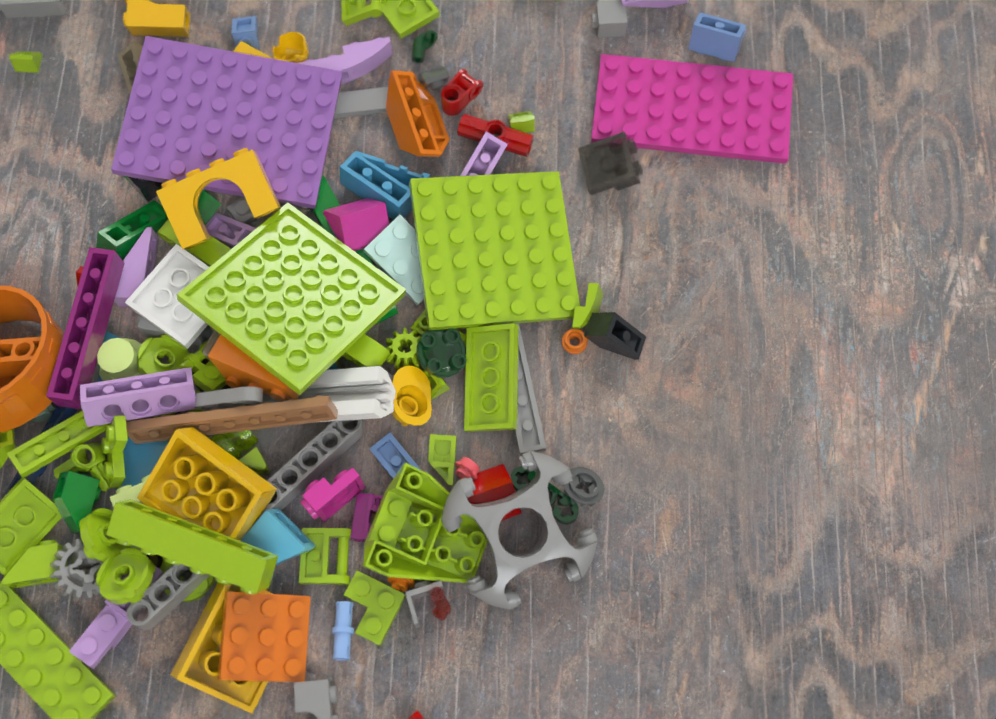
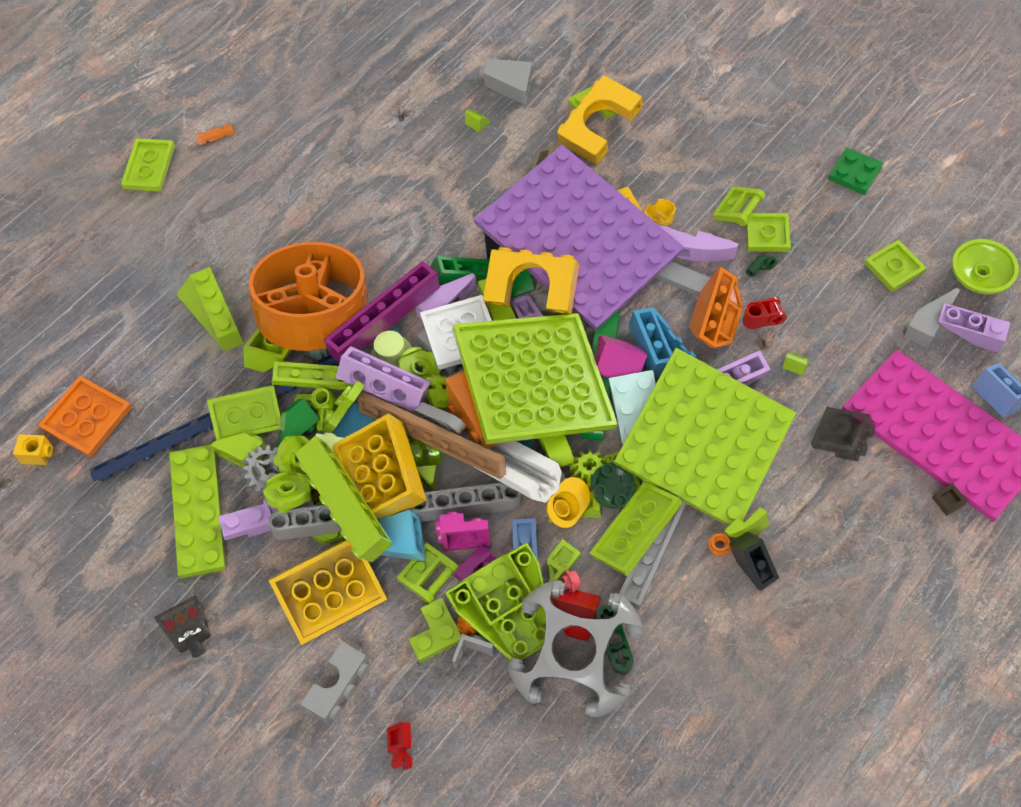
camera: 40 degrees right, 10 degrees down
(246, 30) = (638, 182): medium blue bracket -> none
(264, 637) = (346, 596): orange plate -> none
(342, 631) = (401, 632): light blue pin -> none
(434, 78) = (750, 291): dark grey slope -> none
(441, 603) = (482, 665): clear red arm -> none
(475, 128) = (779, 372): red piece -> none
(586, 478) = (654, 648): dark grey gear -> none
(739, 166) = (949, 499): none -> dark brown plate

